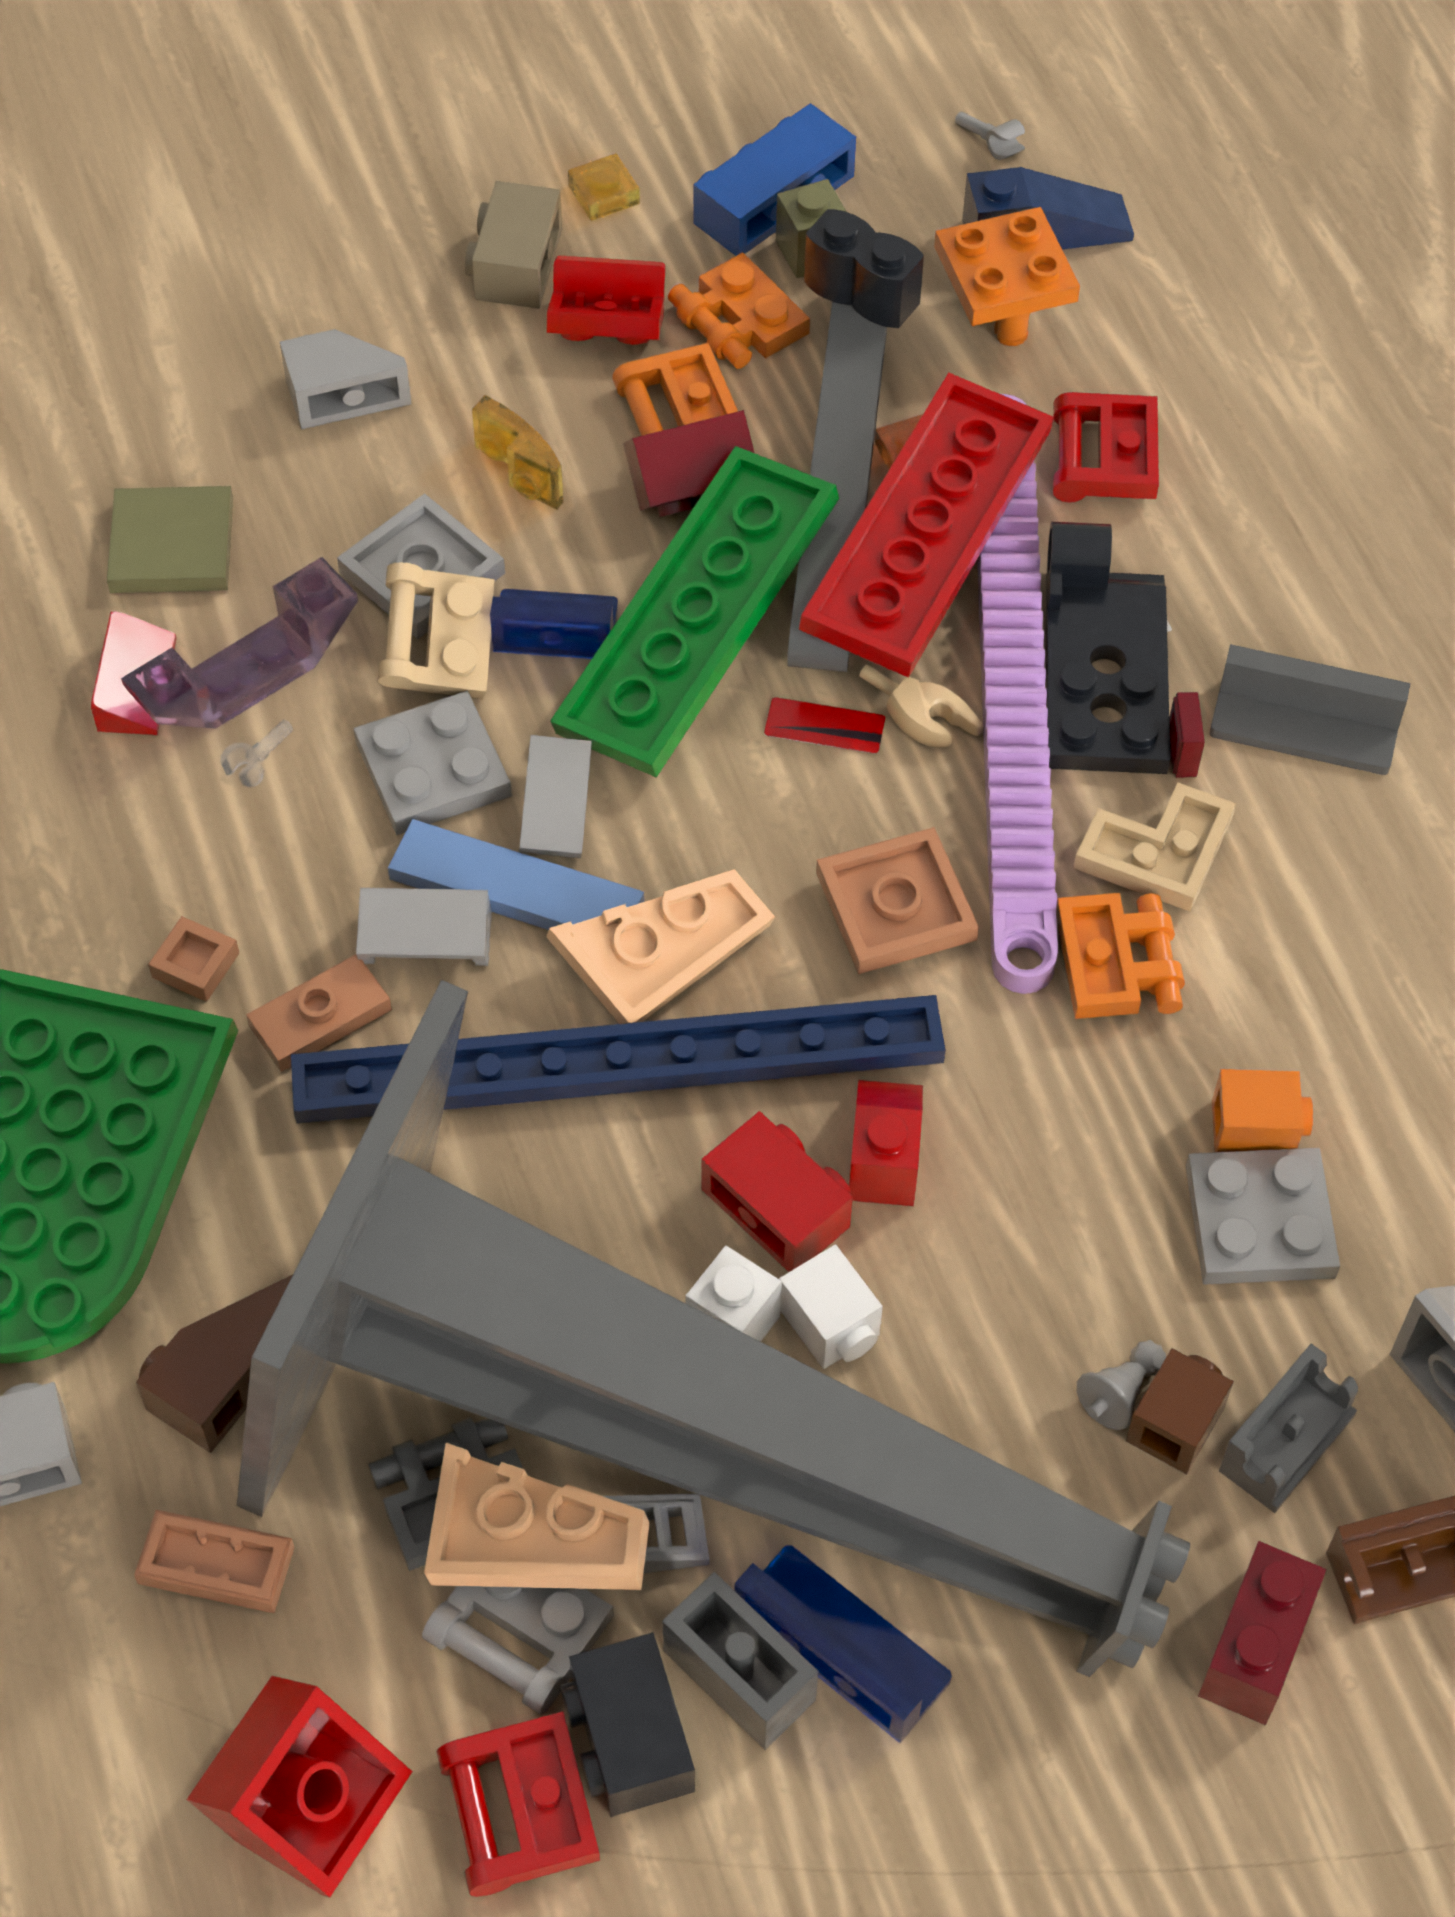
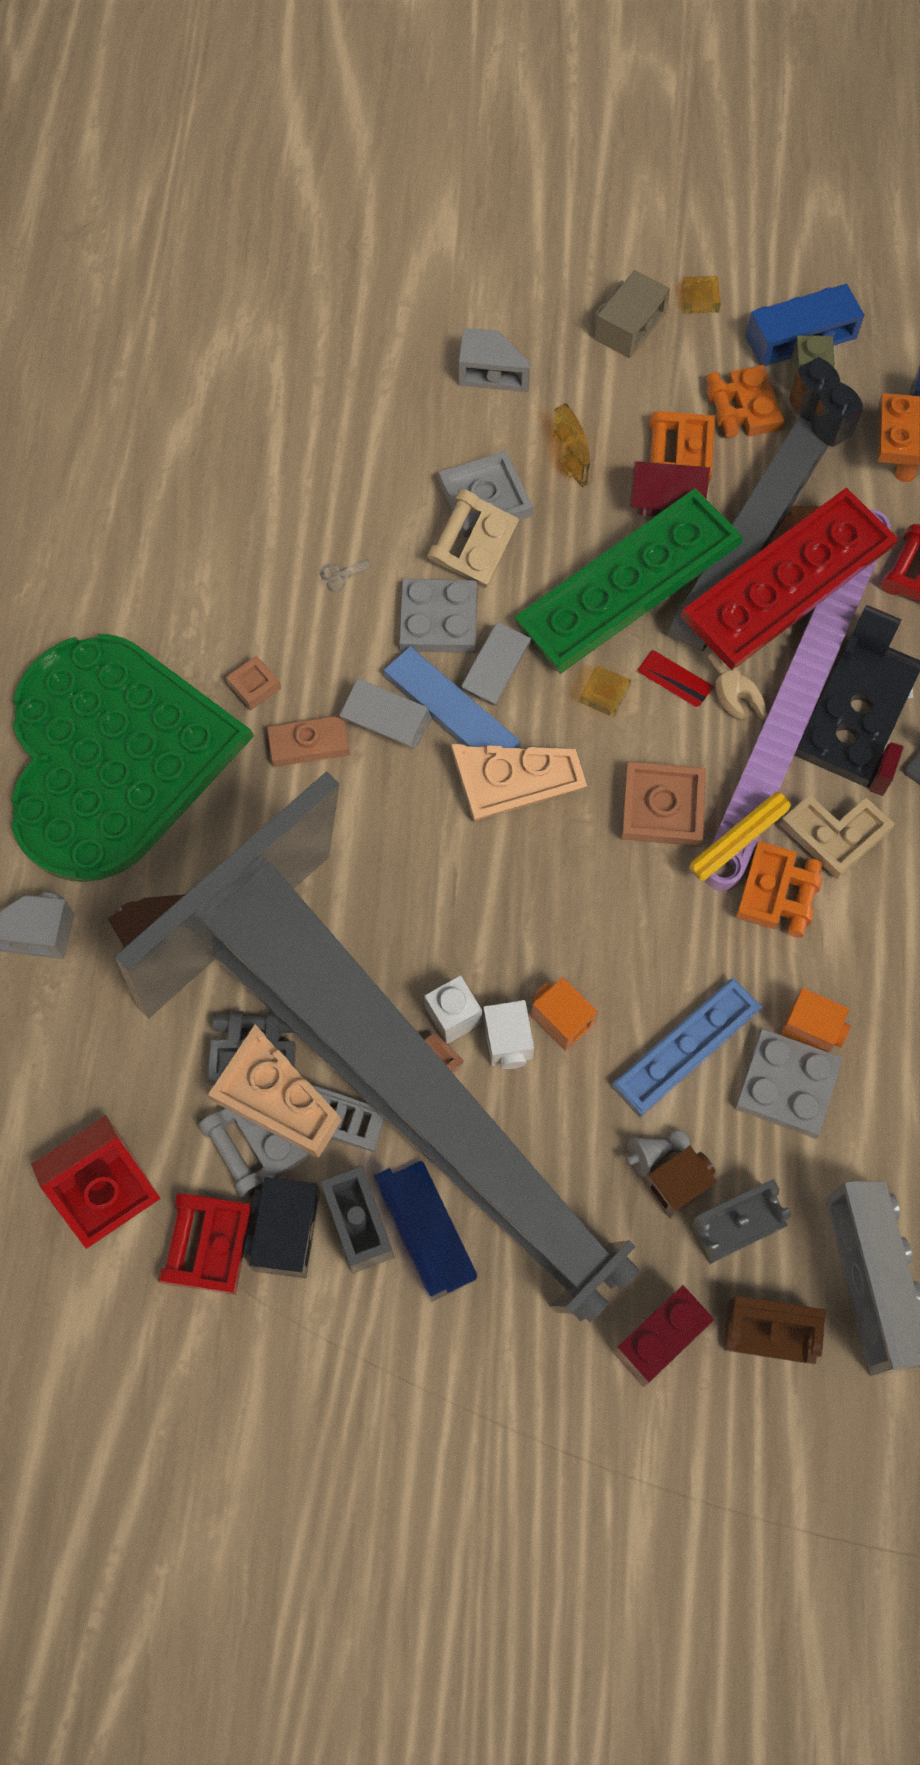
camera: 25 degrees right, 10 degrees up
(126, 647) = (295, 500): slope -> none
(170, 539) = (354, 426): olive tile -> none
(214, 1561) = (109, 1035): nougat plate -> none
(310, 614) = (364, 520): slope -> none
(551, 622) = (544, 555): clear blue panel -> none
(607, 299) = (668, 367): red bracket -> none
(636, 1057) = (475, 840): dark blue plate -> none
(735, 776) = (605, 691): none -> clear yellow plate
(777, 1191) = (511, 952): red brick -> none
(886, 1142) = (588, 946): red slope -> none
(896, 1245) = (563, 1012): none -> orange brick
(1030, 899) = (739, 836): none -> yellow axle
(1093, 1226) = (686, 1047): none -> medium blue tile

